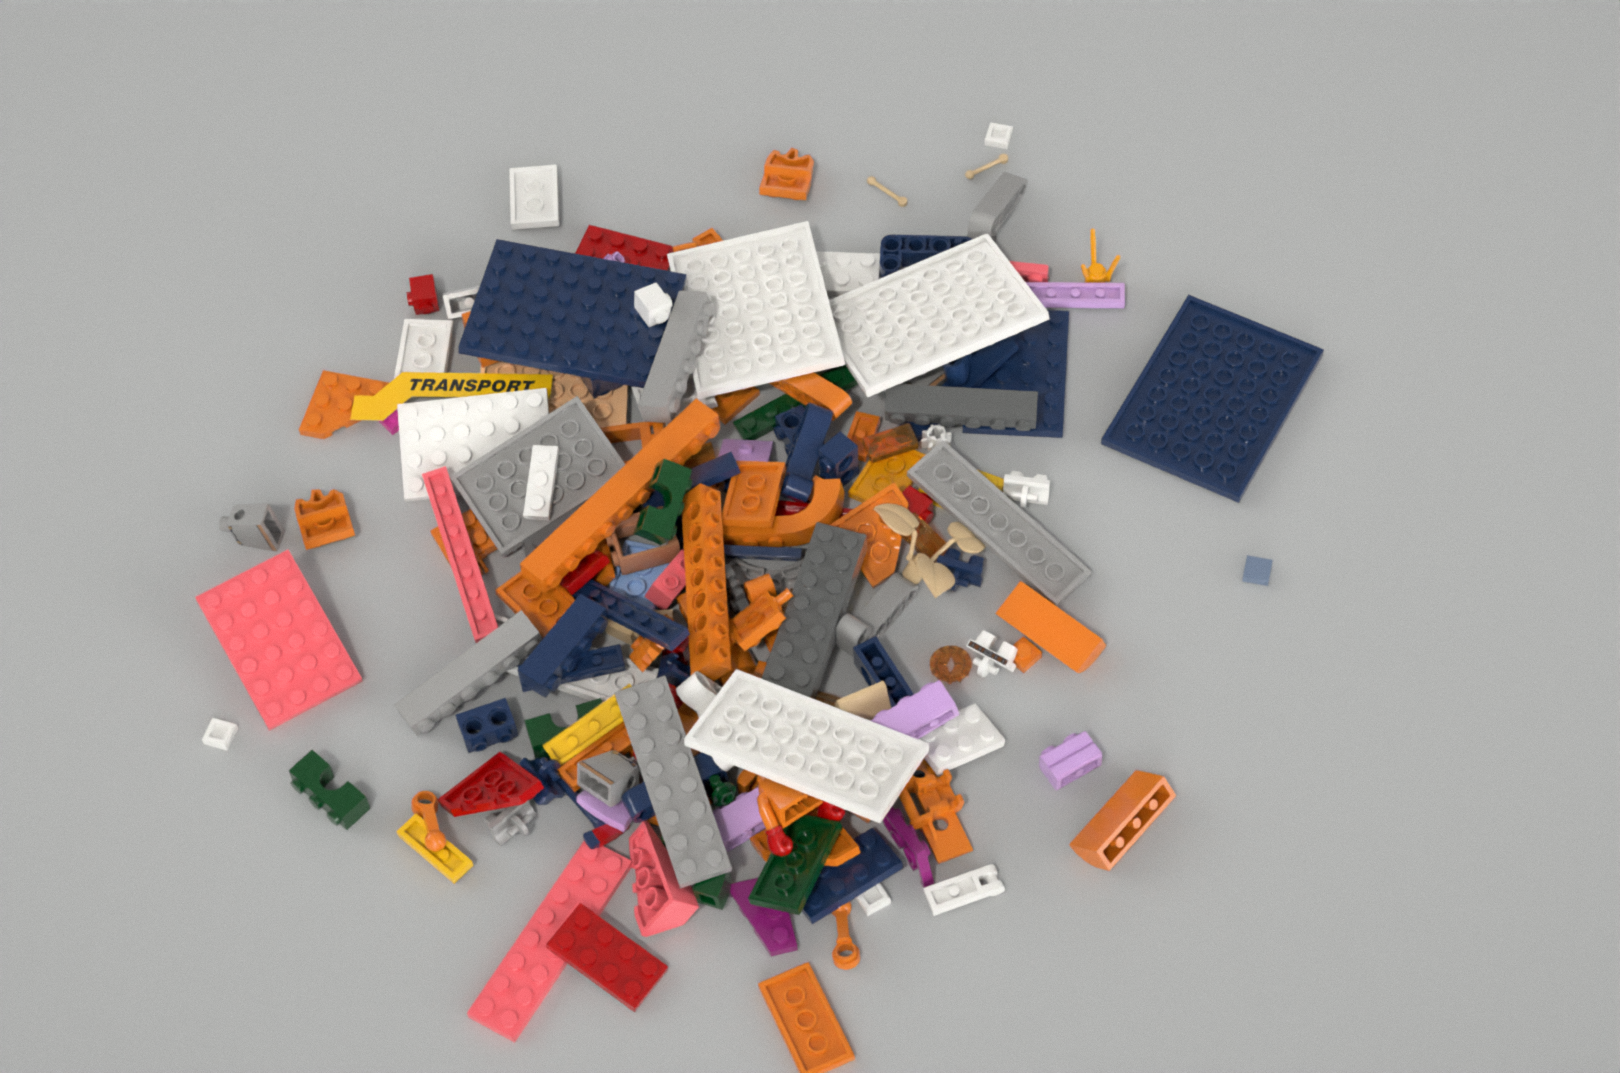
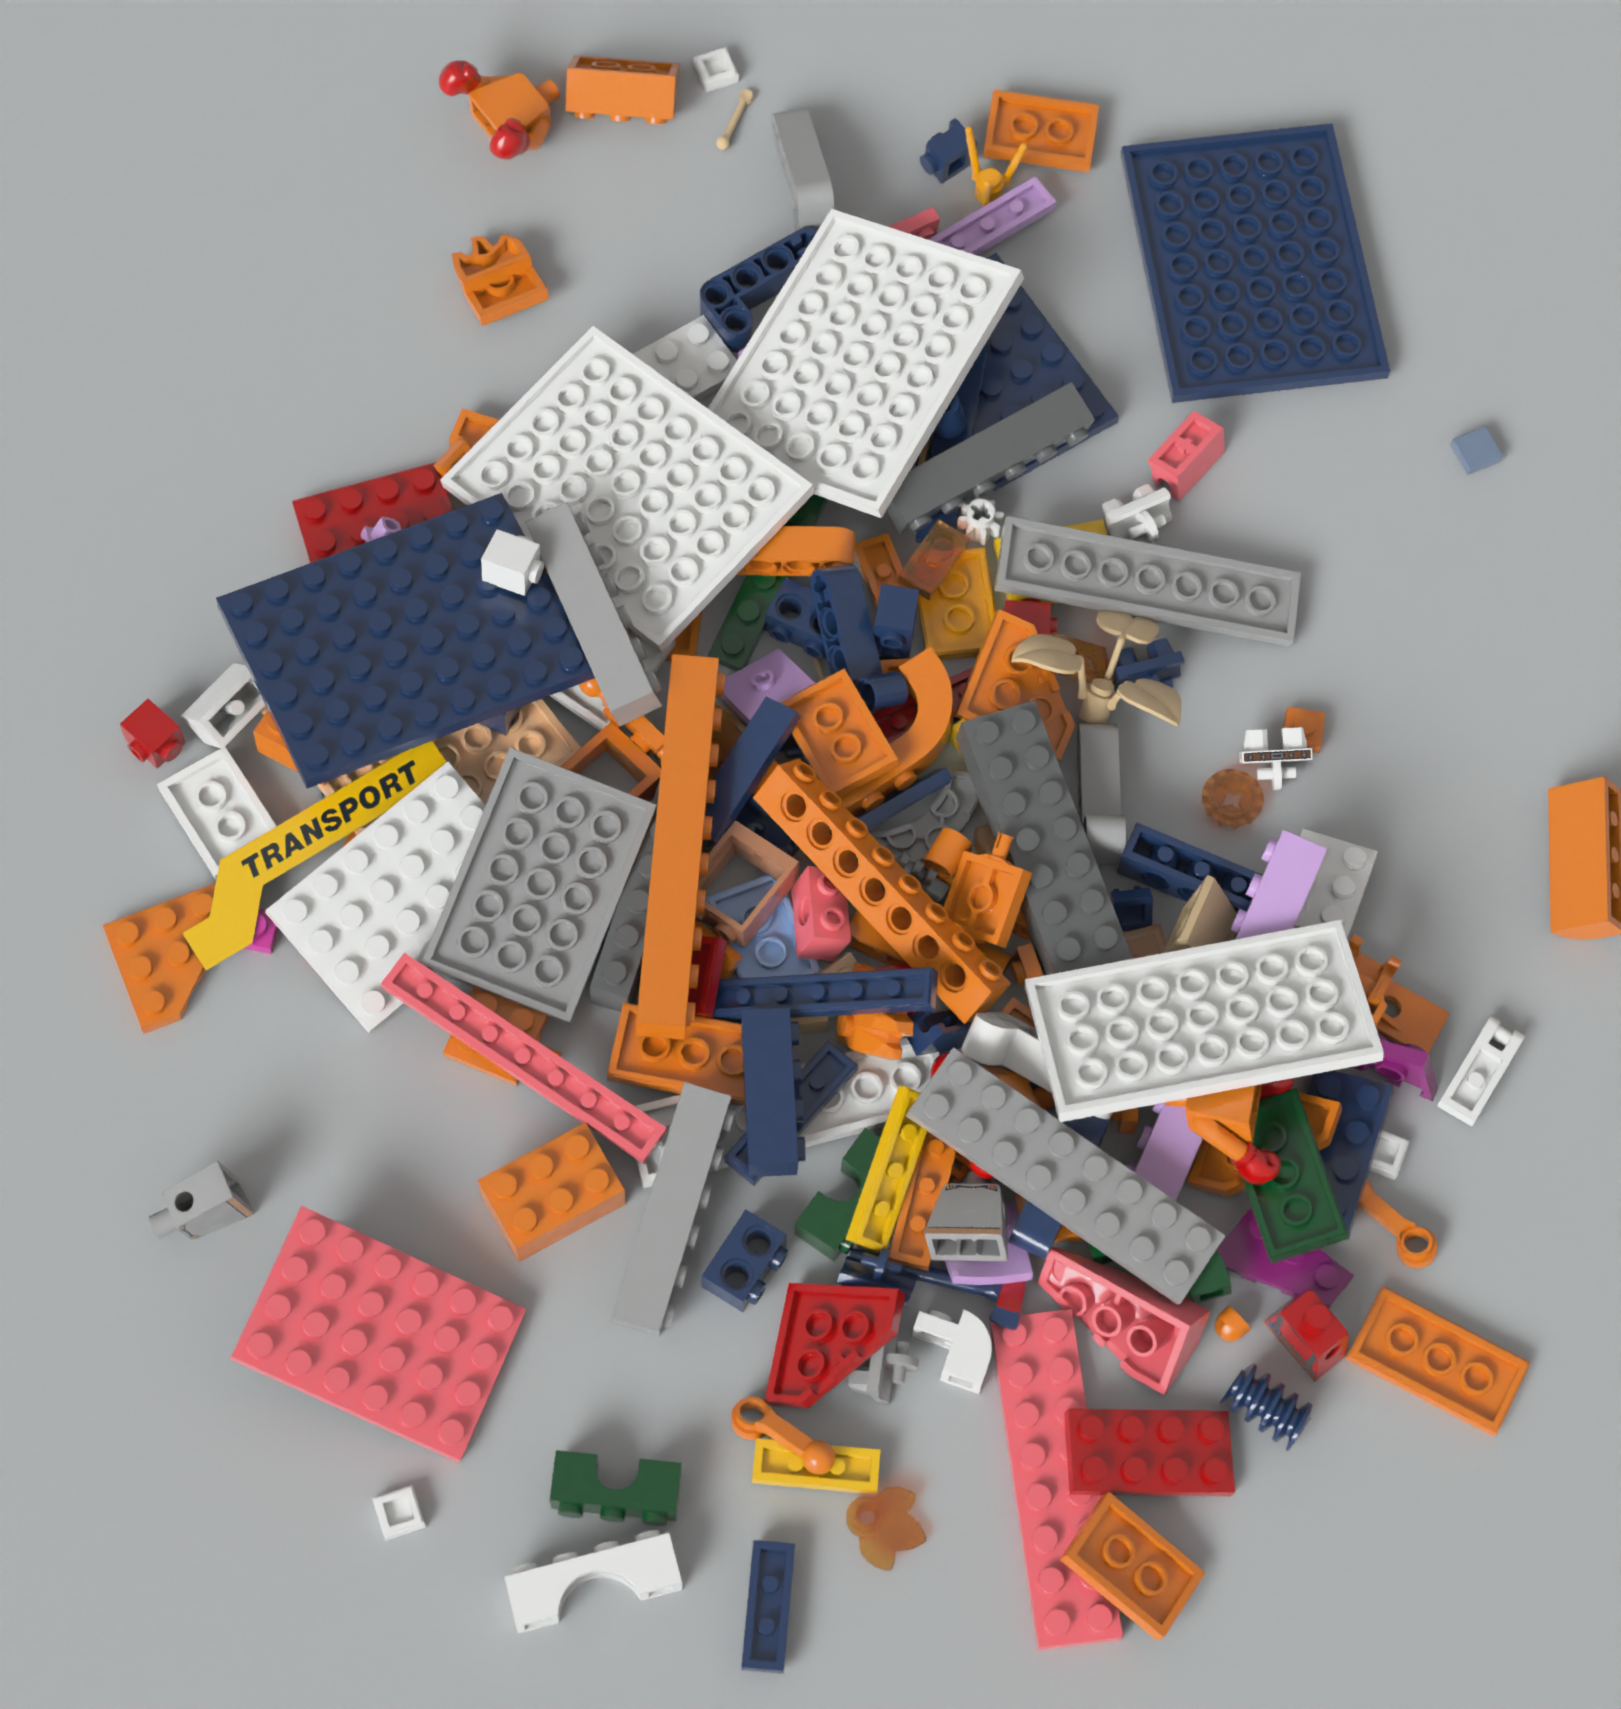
camera: 45 degrees left, 10 degrees up
(249, 815) = (643, 1565): none -> white arch
(323, 518) = (286, 1129): orange plate -> none
(351, 898) = (768, 1606): none -> dark blue plate
(421, 629) = (552, 1192): none -> orange brick
(445, 905) = (891, 1529): none -> clear orange plate
(534, 197) = (184, 507): white plate -> none
(541, 482) = (554, 893): white plate -> none
(545, 1003) = (1132, 1566): none -> orange plate
(560, 842) = (967, 1345): none -> white brick
(672, 483) = (743, 789): dark green arch -> none
(689, 977) = (1268, 1405): none -> dark blue piece
(709, 926) = (1231, 1325): none -> orange hinge
(722, 792) = (1124, 1147): dark green plate -> none
(743, 950) = (1310, 1333): none -> red torso
(841, 682) = (1133, 907): none -> dark blue tile
(867, 92) = (504, 106): none -> orange torso
(902, 201) = (667, 228): tan hinge -> none
(936, 116) = (622, 88): none -> orange slope
(1051, 628) = (1313, 675): orange brick -> none
(1070, 759) = (1469, 827): lavender brick -> none
(1081, 247) = (947, 152): none -> dark blue brick
(1082, 474) = (1187, 454): none -> coral hinge
(1151, 263) = (1054, 130): none -> orange plate

